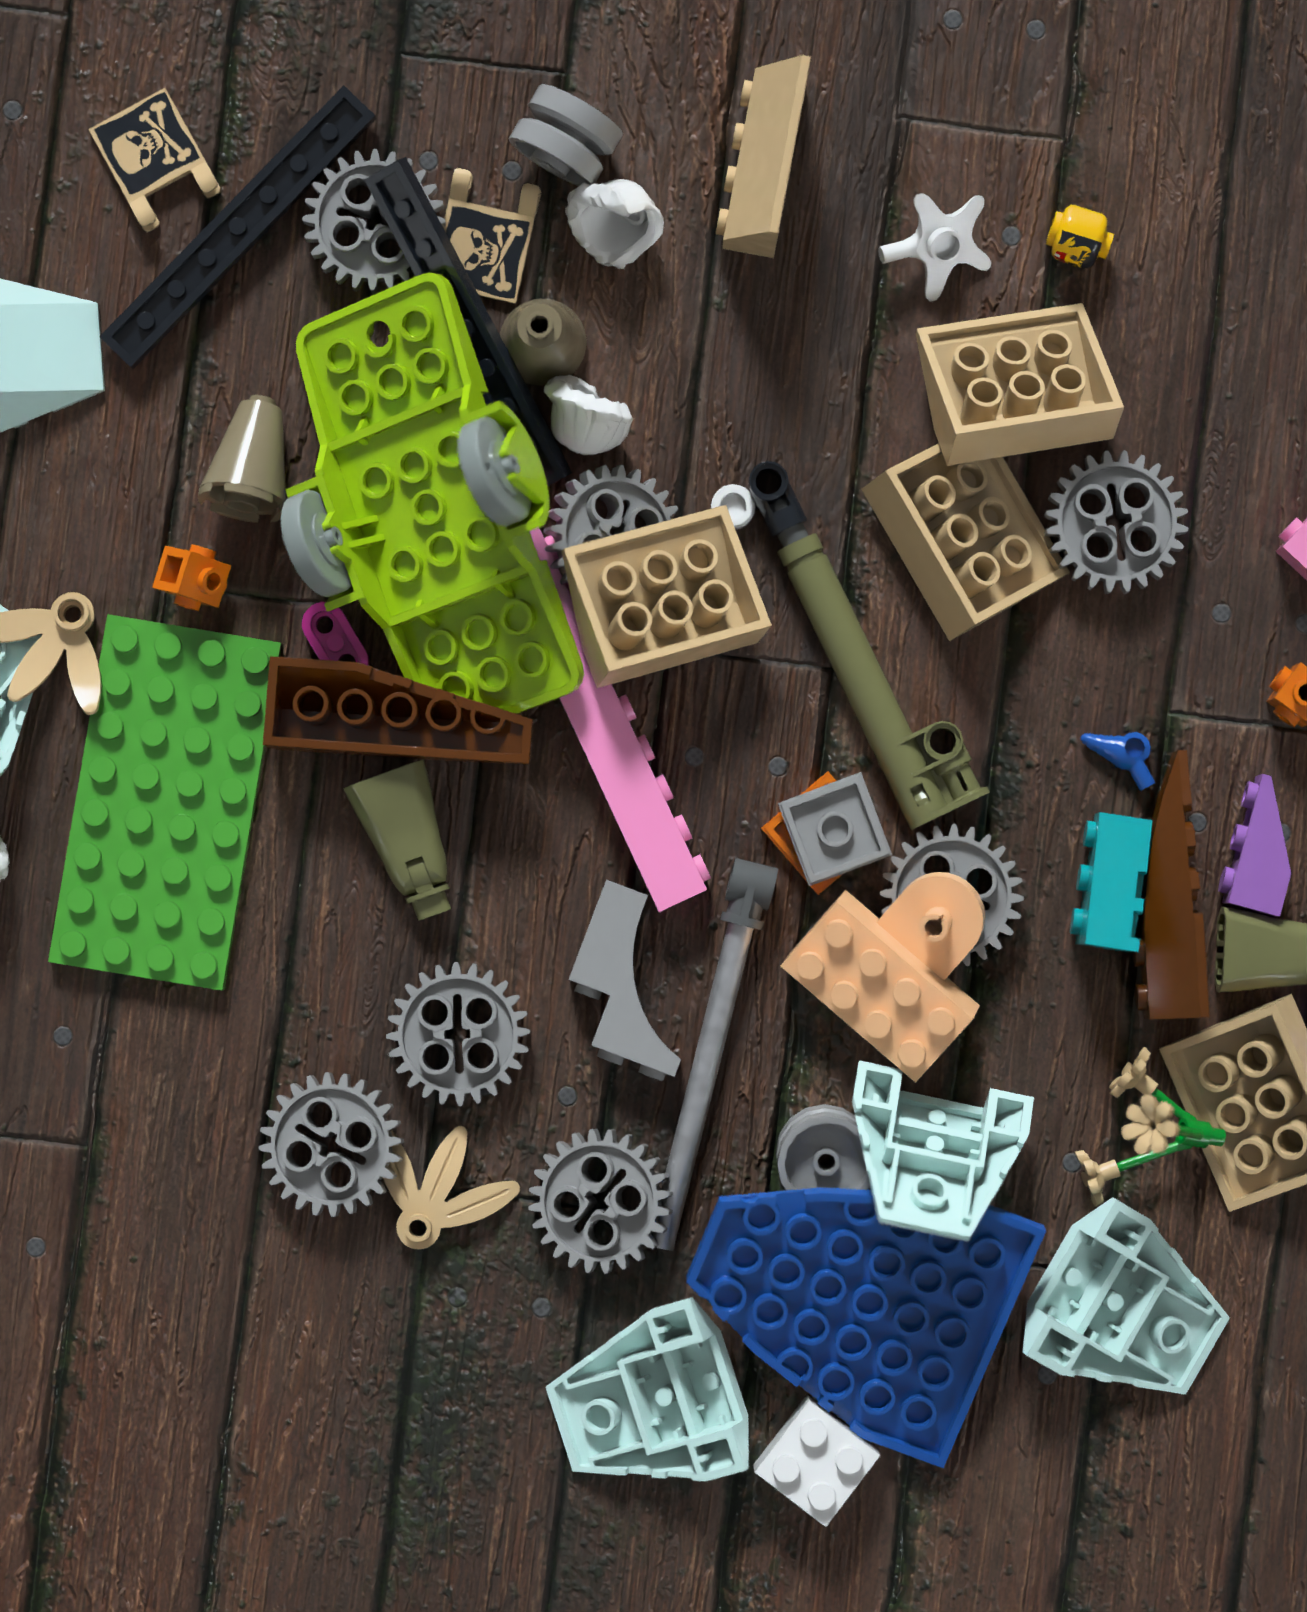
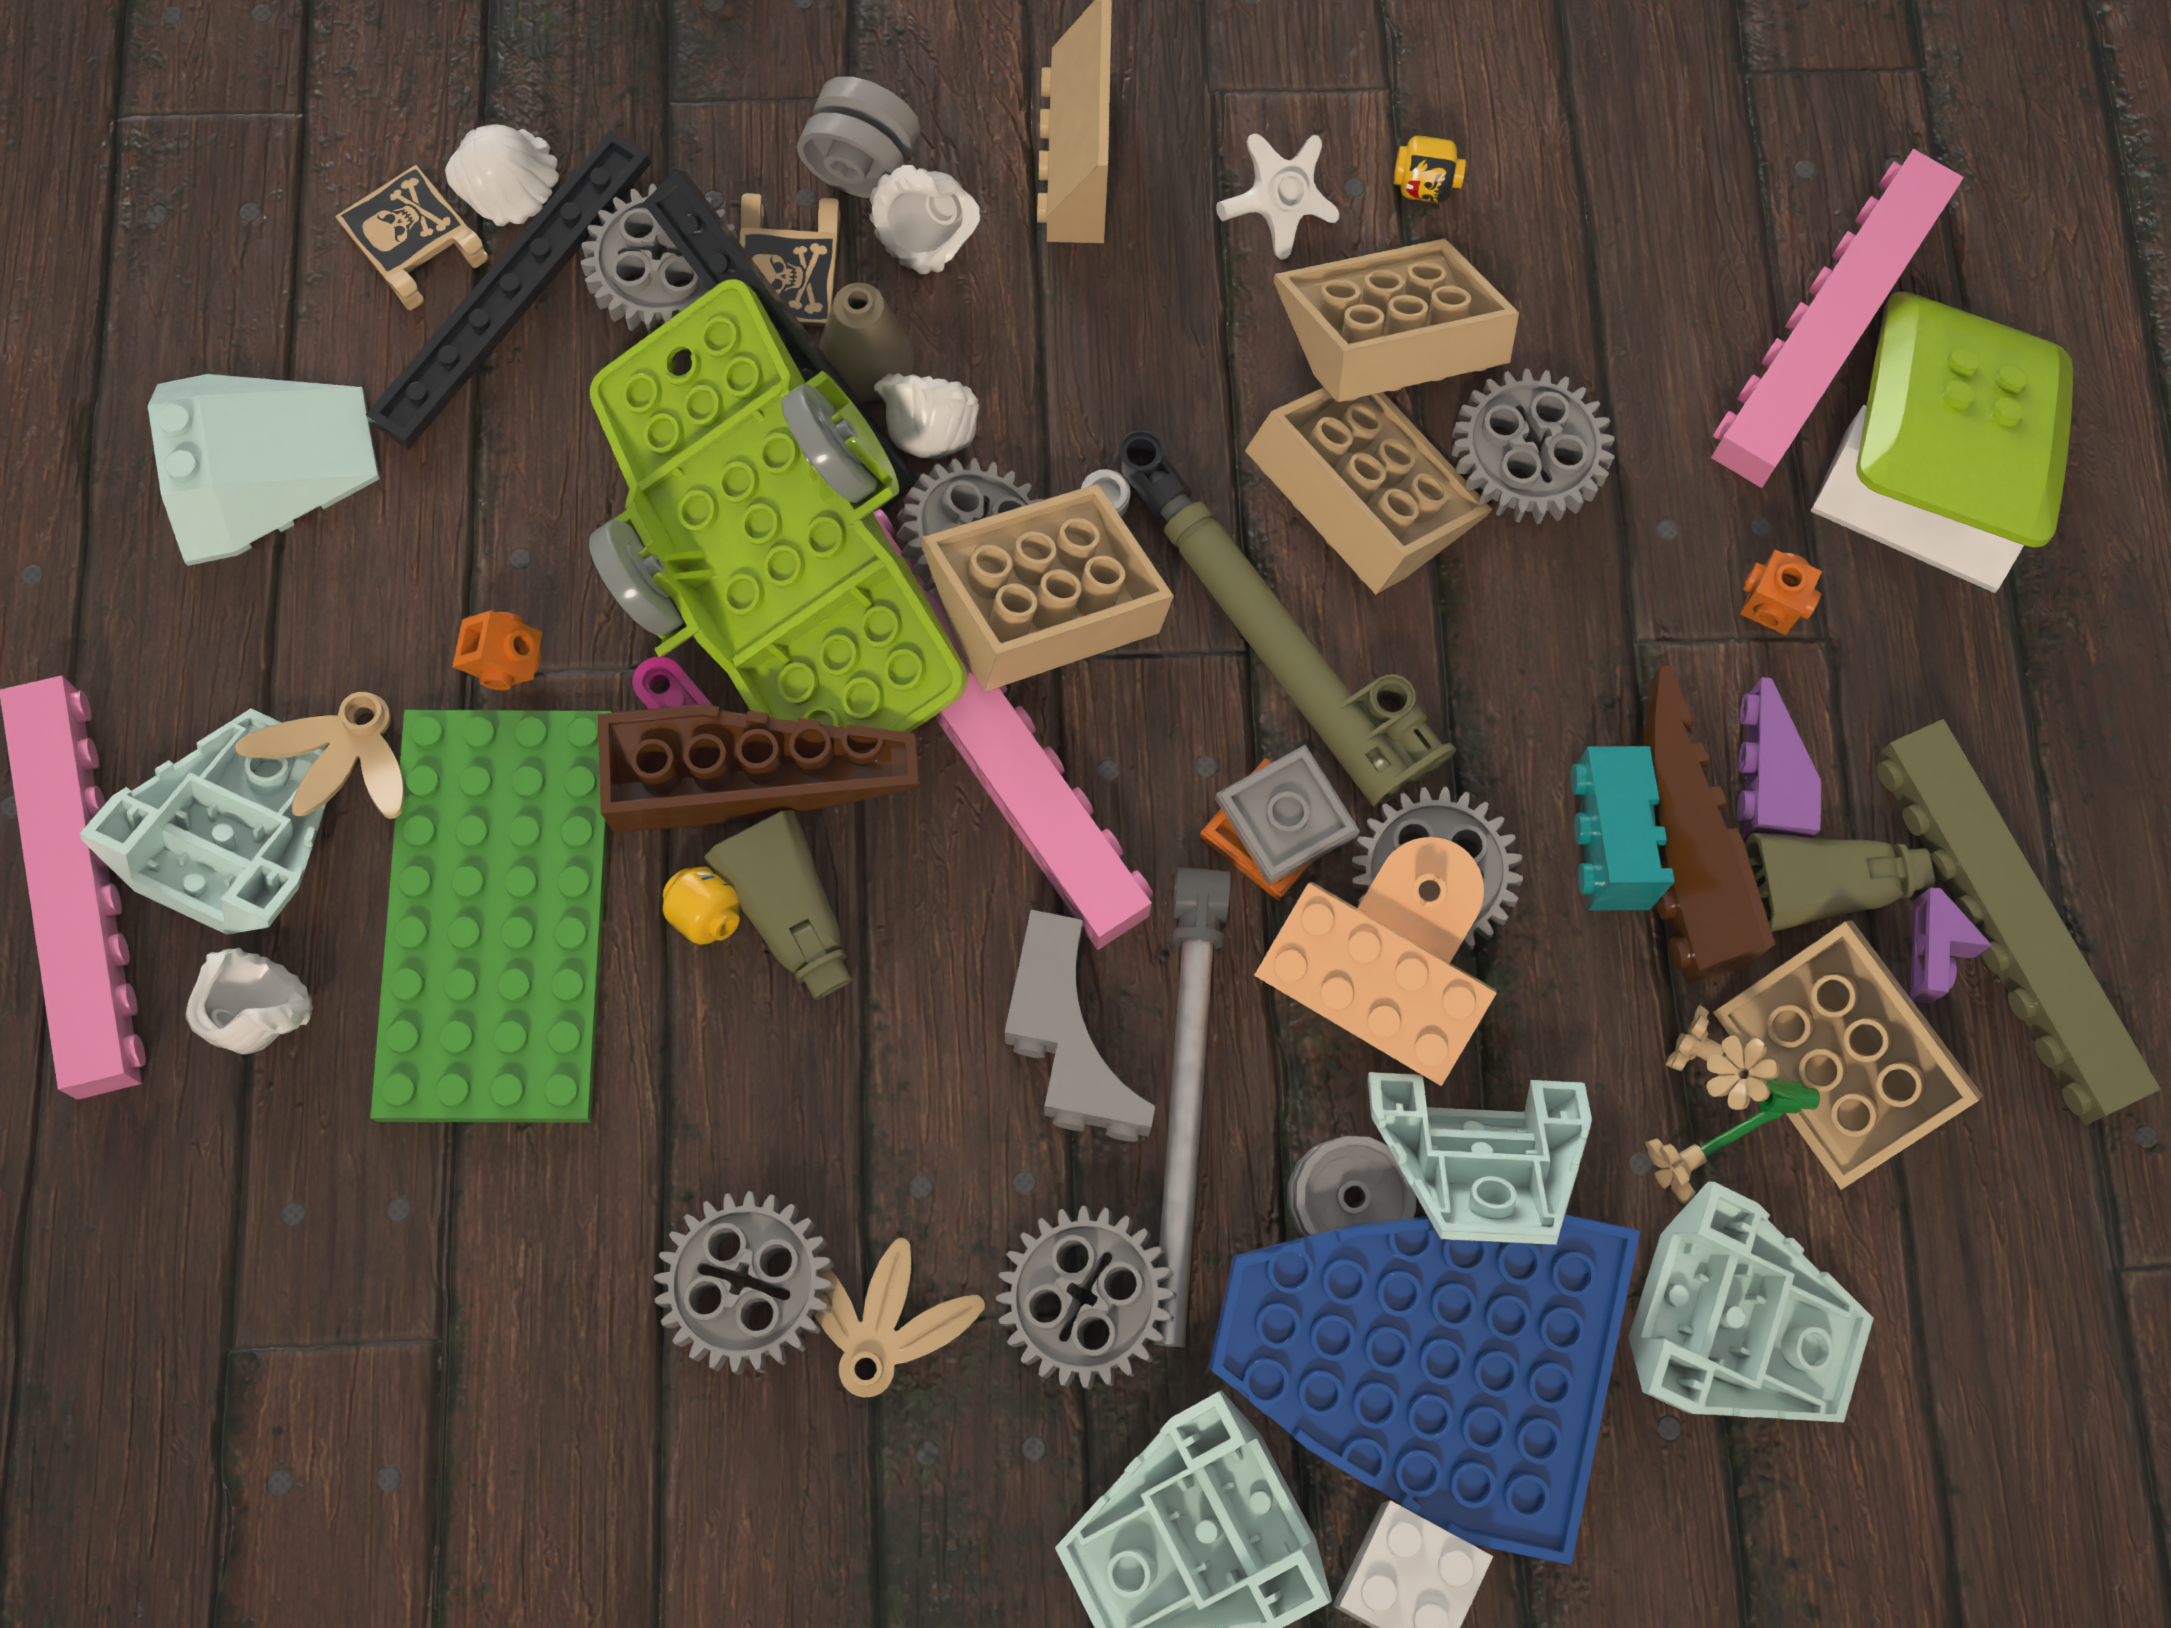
camera: 15 degrees left, 15 degrees down
(244, 113) = (503, 173): none -> white hair
(249, 464) = (549, 525): dark tan cone -> none
(335, 827) = (701, 905): none -> yellow head
(498, 1032) = (834, 1132): light grey gear -> none
(1124, 752) = (1597, 688): blue animal -> none

